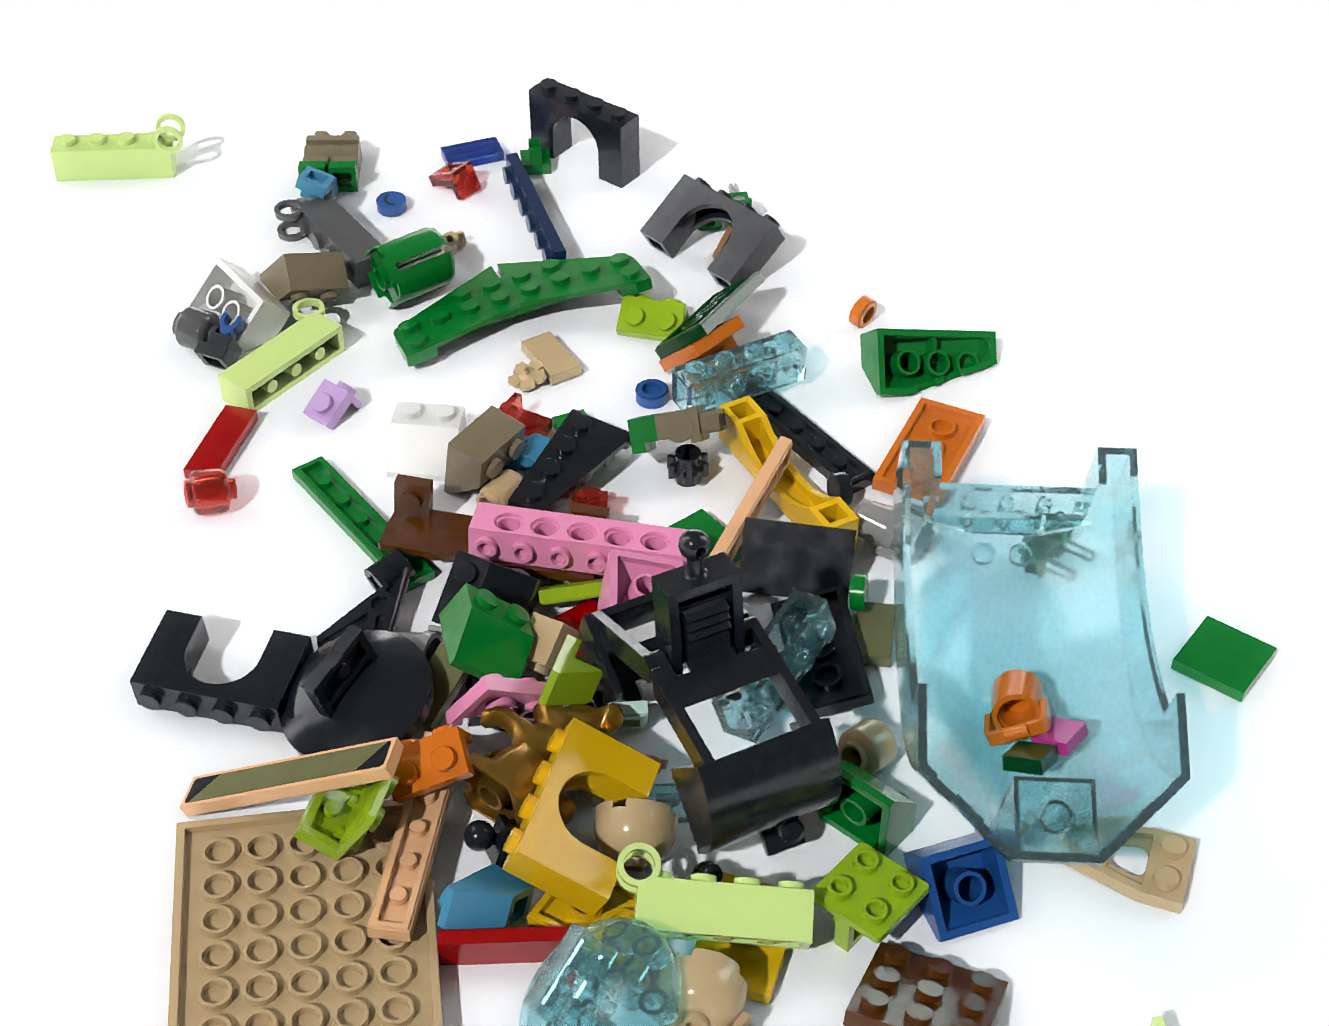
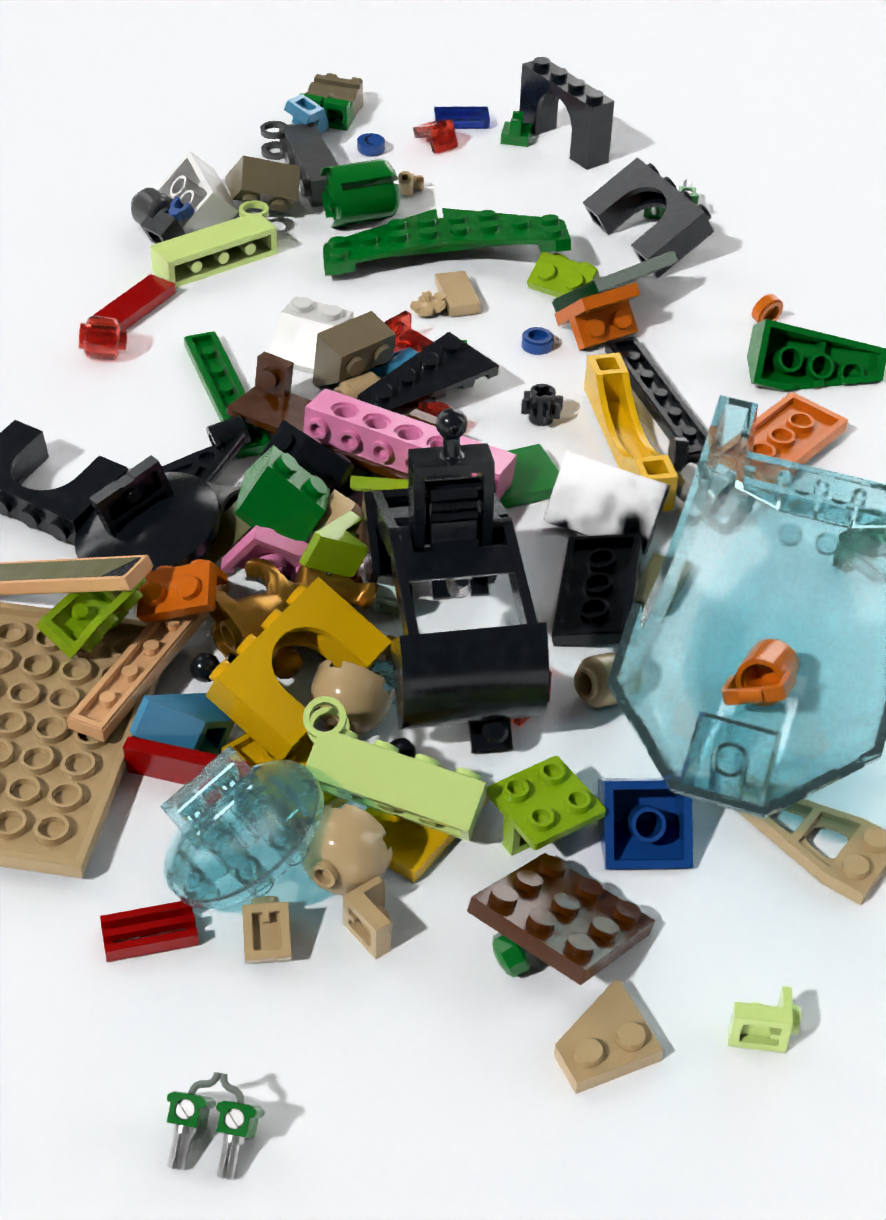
camera: 15 degrees right, 0 degrees up
(119, 155) = (151, 63): yellowish green hinge -> none
(331, 402) = (242, 289): lavender bracket -> none
(532, 208) = (492, 167): dark blue plate -> none
(677, 426) = (552, 365): dark tan hips -> none
(740, 372) = (631, 332): clear light blue brick -> none
(755, 497) = (585, 443): light nougat tile -> none
(799, 635) = (554, 577): clear light blue brick -> none
(859, 592) = (654, 542): green tile -> none
(870, 811) = (580, 731): green slope -> none
(1030, 757) = (759, 717): dark green tile -> none
(1064, 733) = (796, 710): dark pink tile -> none

